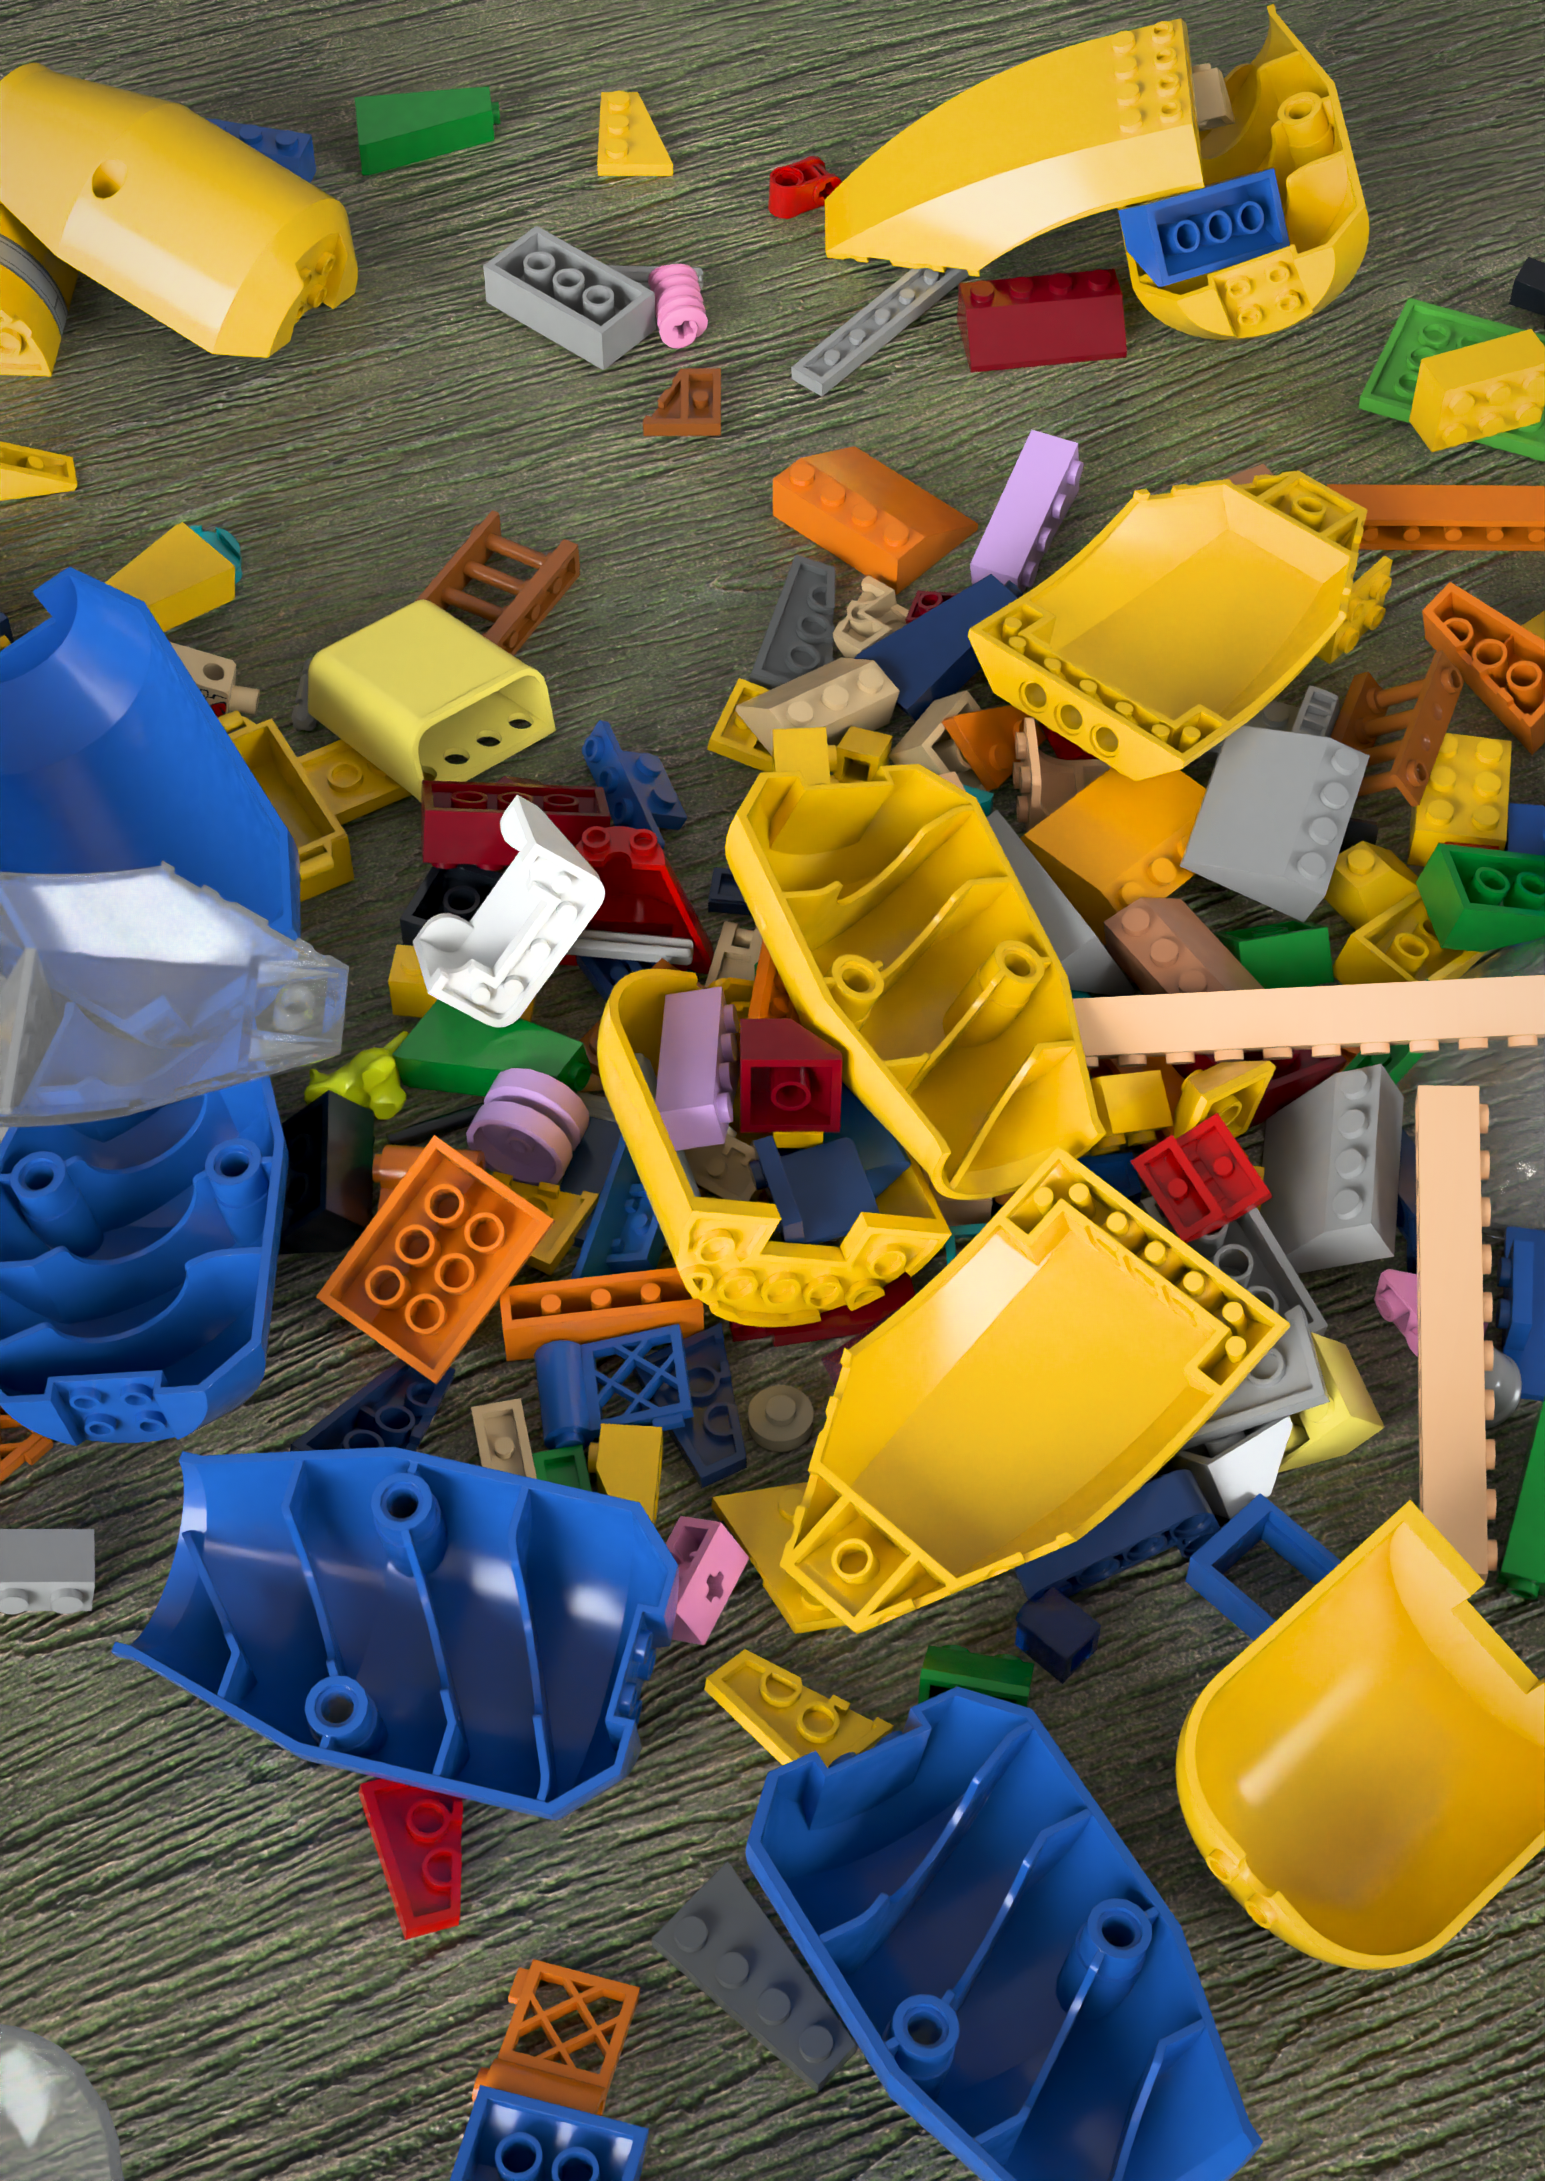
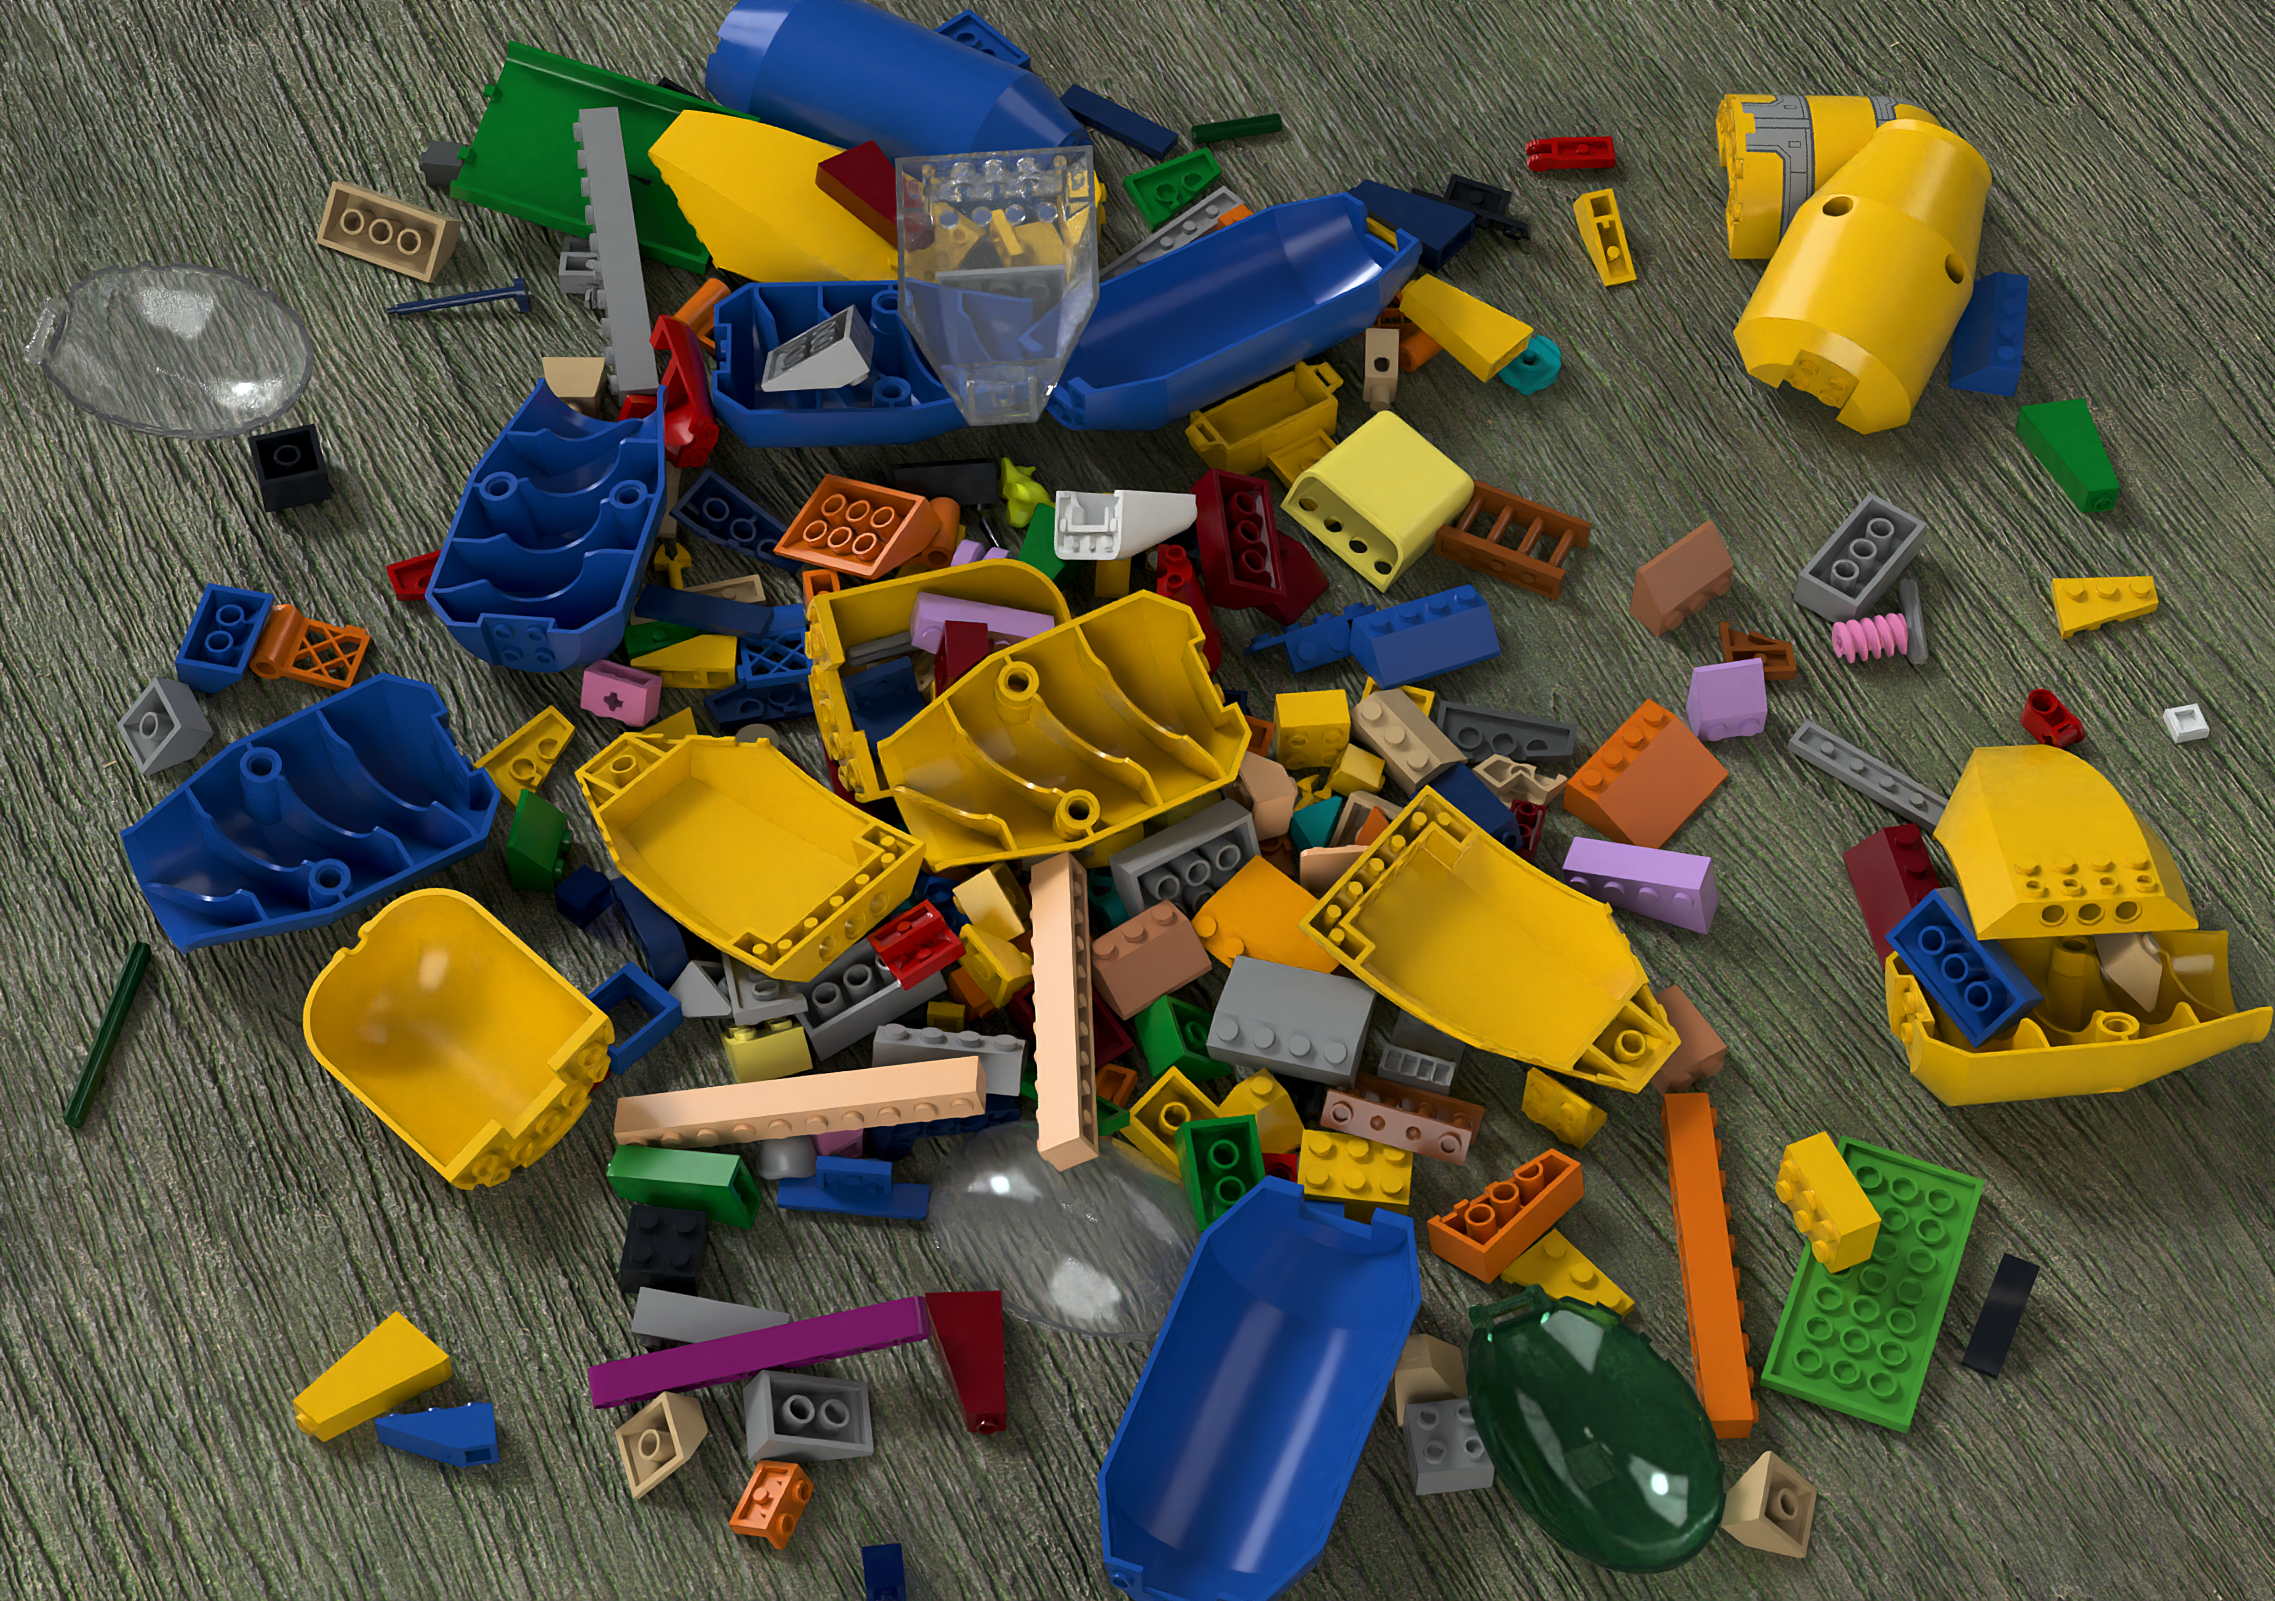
camera: 85 degrees right, 0 degrees up
(57, 1664) = (577, 381): none -> tan torso
(134, 1485) = (689, 410): none -> red cone
(158, 1245) = (823, 356): none -> light grey slope
(174, 2092) = (290, 468): none -> black brick
(573, 1427) = (704, 612): none -> dark blue tile
(584, 448) = (1681, 580): none -> nougat slope
(657, 679) = (1424, 637): none -> blue slope
(771, 422) = (1727, 700): none -> lavender slope
(798, 97) = (2186, 723): none -> white tile

